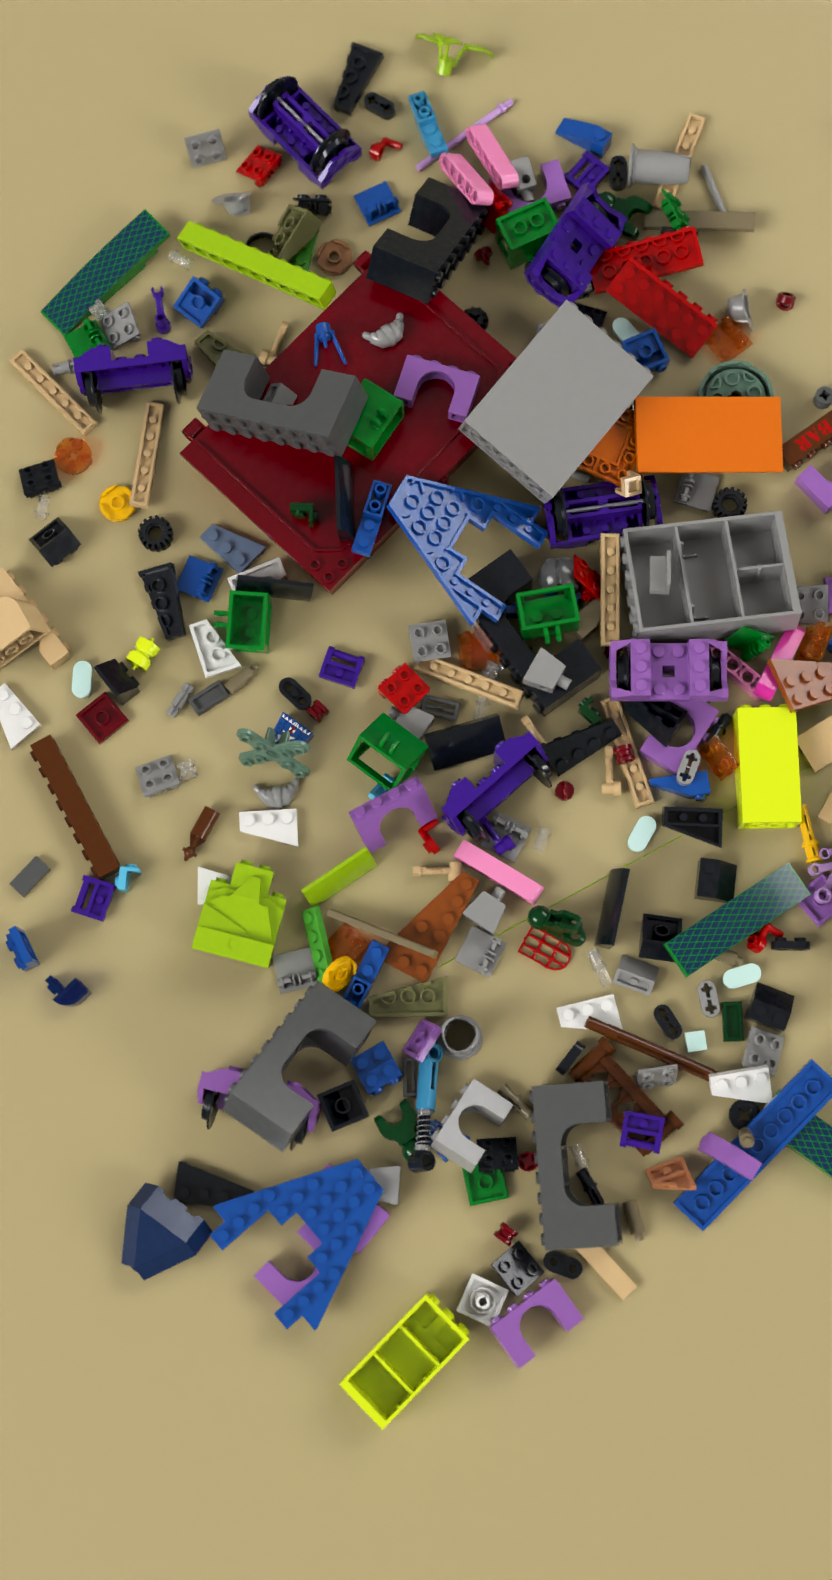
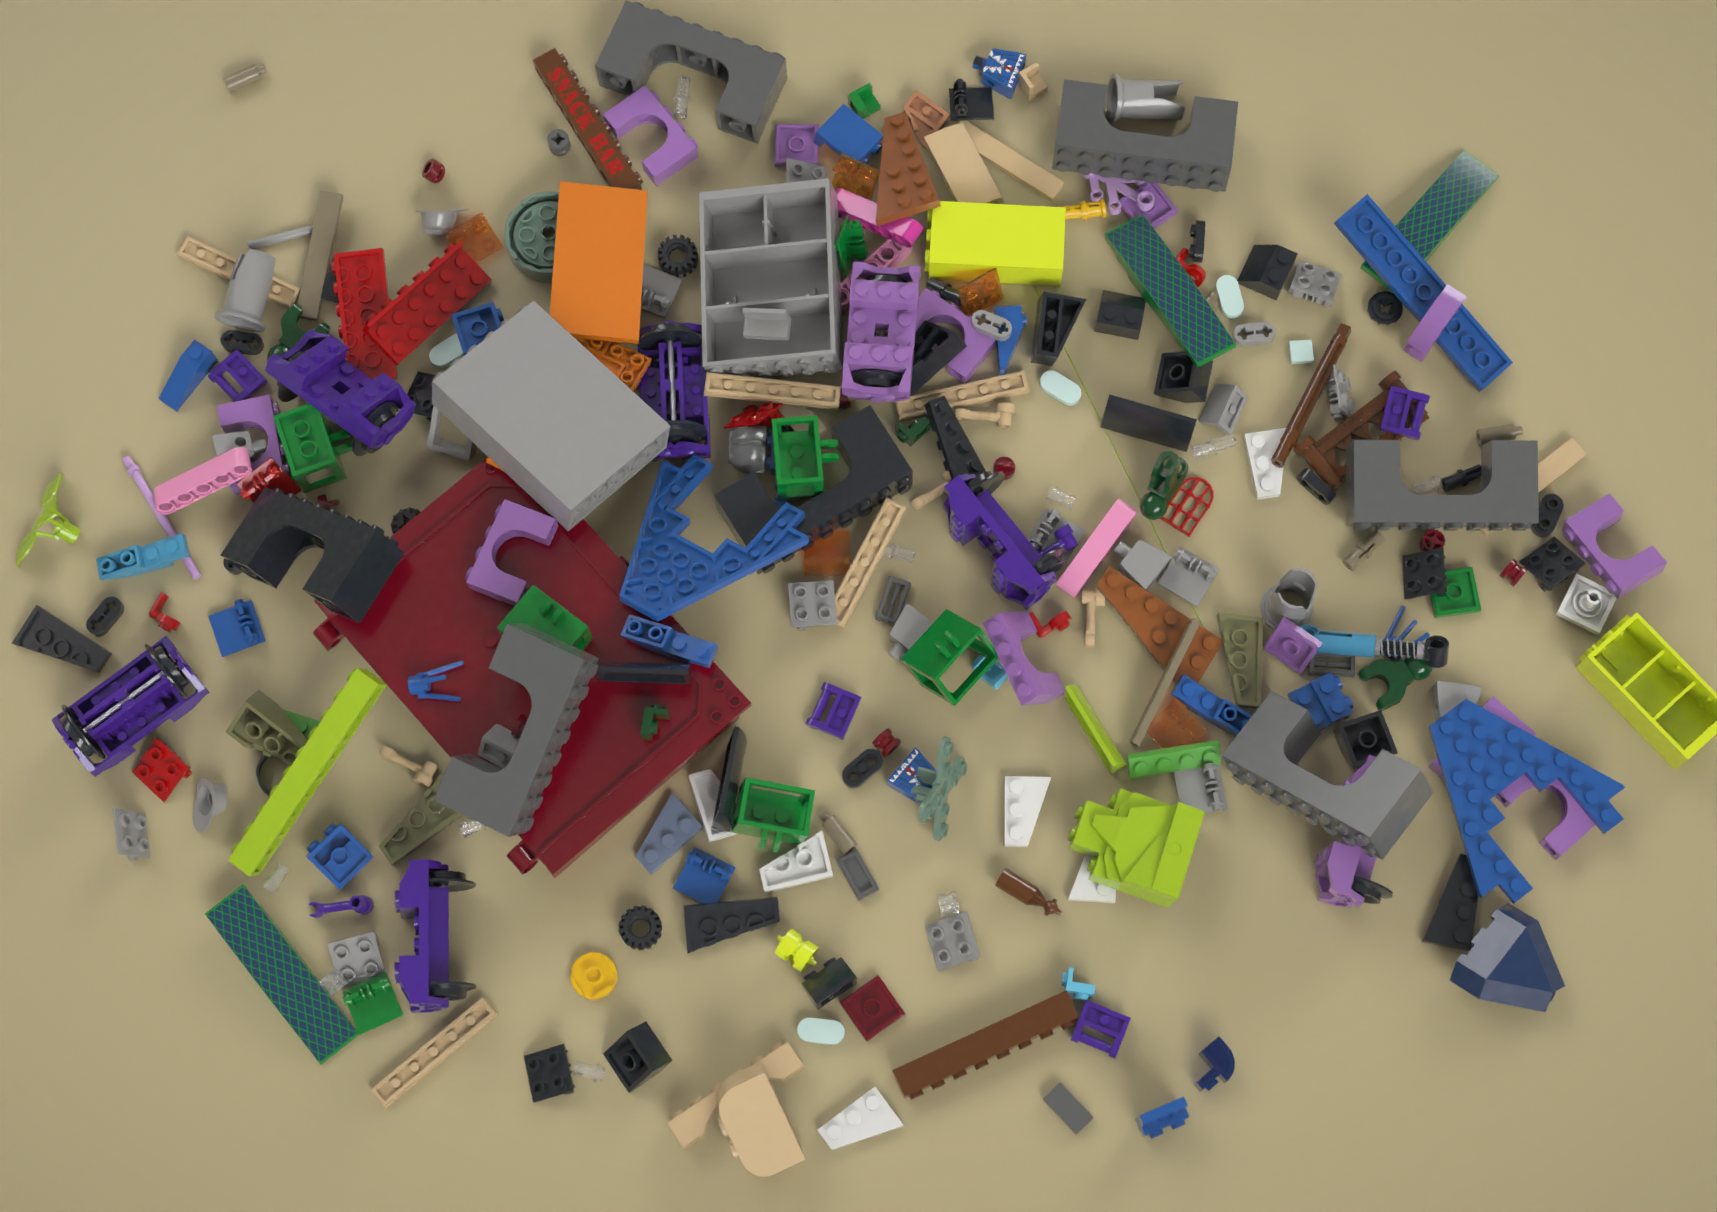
camera: 90 degrees left, 5 degrees down
(64, 367) = (403, 1026): light grey axle -> none
(71, 466) = (537, 1033): clear orange plate -> none
(147, 455) = (535, 933): tan tile -> none
(180, 700) = (858, 909): light grey axle -> none
(278, 795) = (987, 798): light grey piece -> none
(322, 200) = (225, 693): black hinge -> none
(334, 267) = (310, 694): medium nougat tile -> none
(339, 973) = (1212, 733): yellow tile -> none
(388, 334) = (432, 608): light grey piece -> none
(403, 688) = (869, 637): red bracket -> none
(451, 1141) = (1409, 618): light grey arch -> none
(464, 741) = (937, 571): black slope -> none
(466, 179) = (229, 511): bright pink beam -> none
(481, 637) = (816, 540): clear piece -> none
(492, 670) = (854, 534): clear wheel -> none
(546, 673) = (872, 463): light grey torso -> none
(623, 754) = (968, 395): dark red wheel -> none
(630, 485) = (654, 348): tan panel -> none
(671, 1019) = (1280, 384): black beam -> none
(671, 1175) = (1452, 388): nougat wing -> none
(672, 209) = (297, 285): green hinge -> none
(732, 1021) = (1280, 311): dark green tile -> none
(743, 1084) = (1352, 304): white wing -> none
(746, 1137) = (1419, 297): dark tan cylinder -> none

